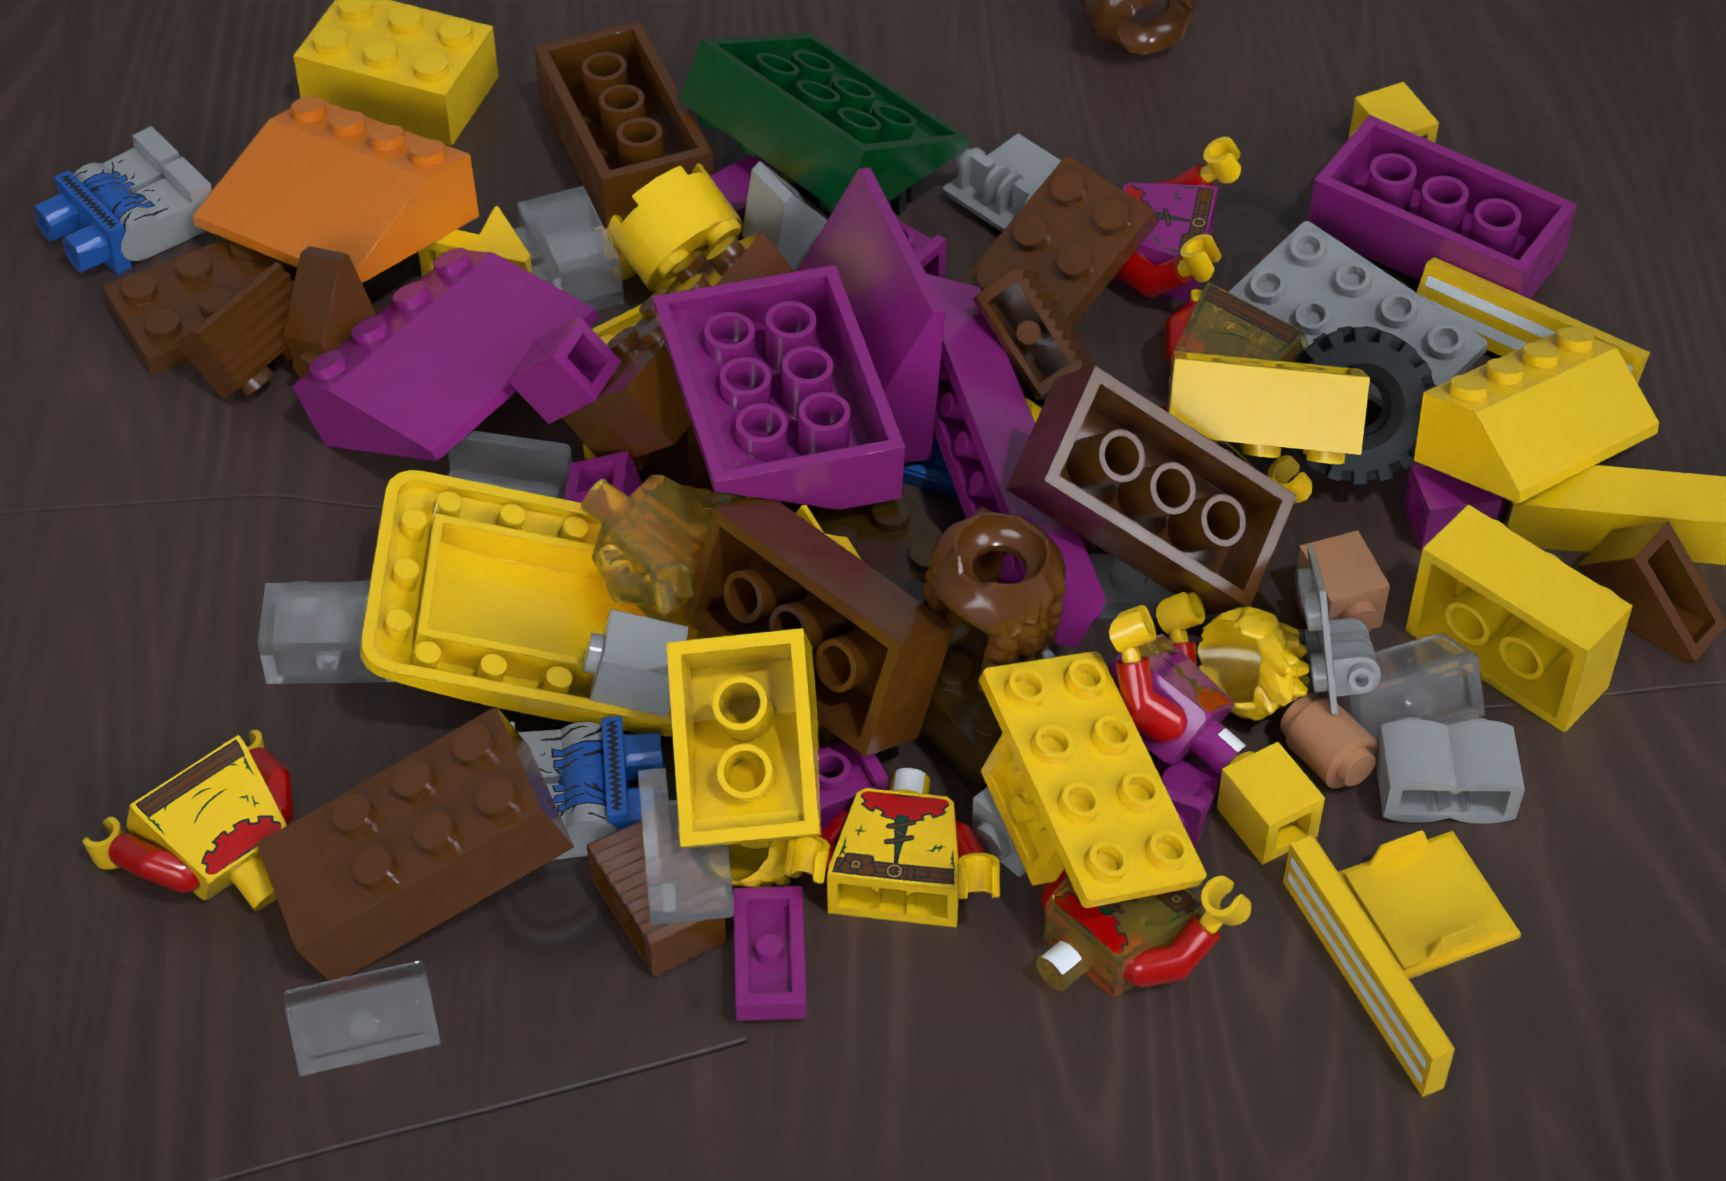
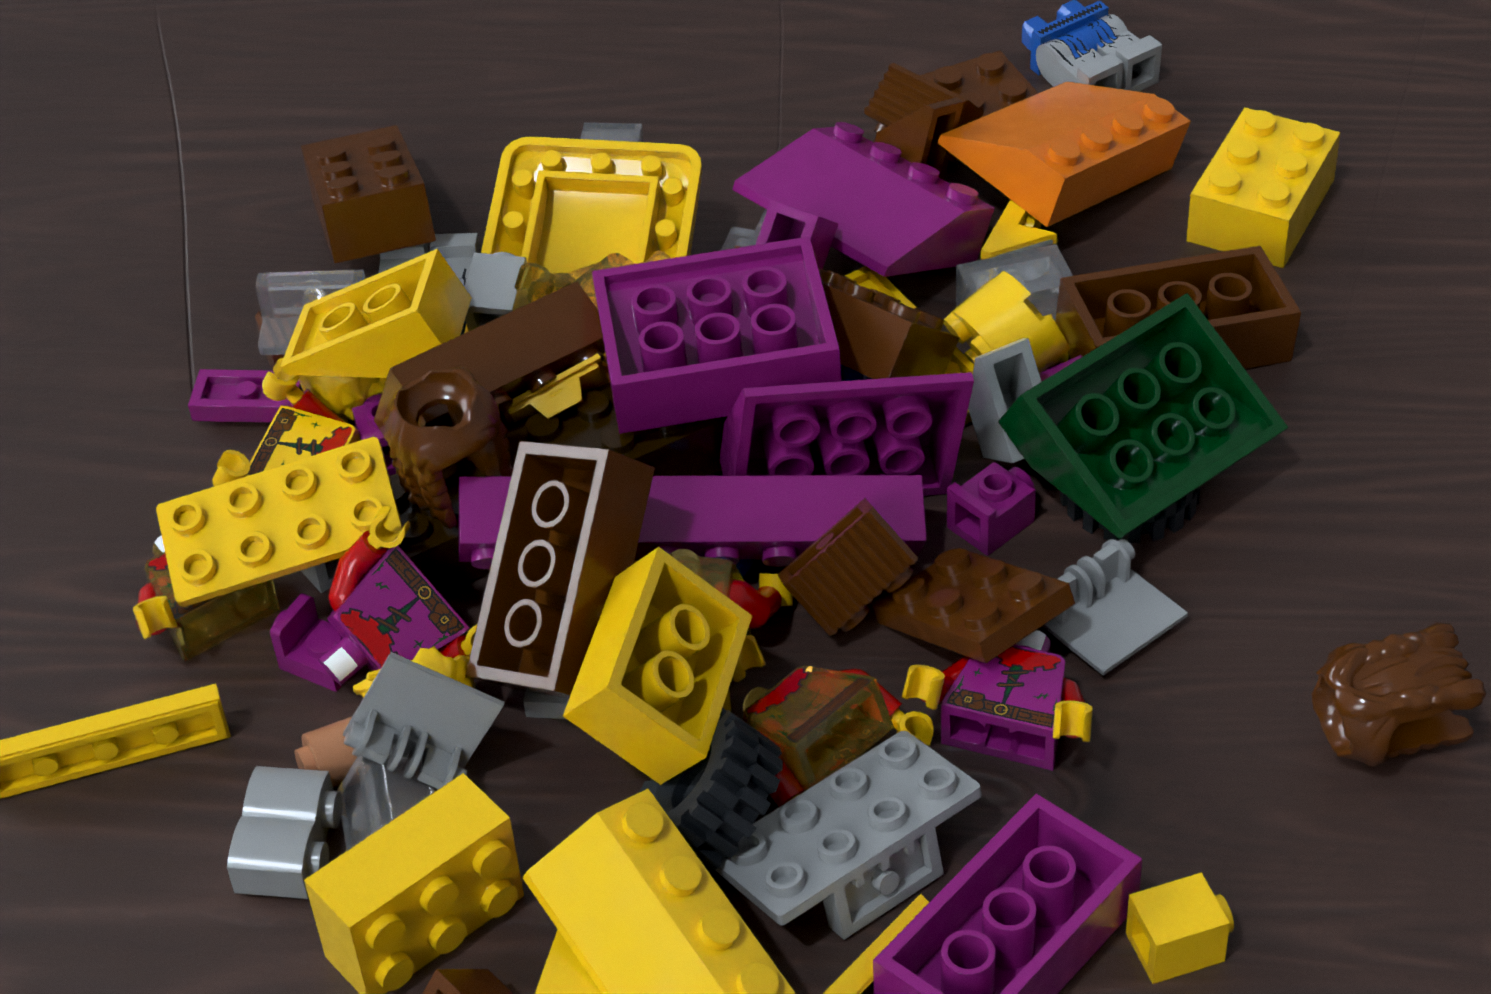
camera: 100 degrees right, 5 degrees down
(205, 825) = (442, 118): torso -> none
(361, 1018) = (271, 194): clear panel -> none
(1269, 801) = (288, 698): yellow brick -> none
(1351, 579) = (519, 779): nougat brick -> none
(1429, 902) = (168, 816): yellow piece -> none

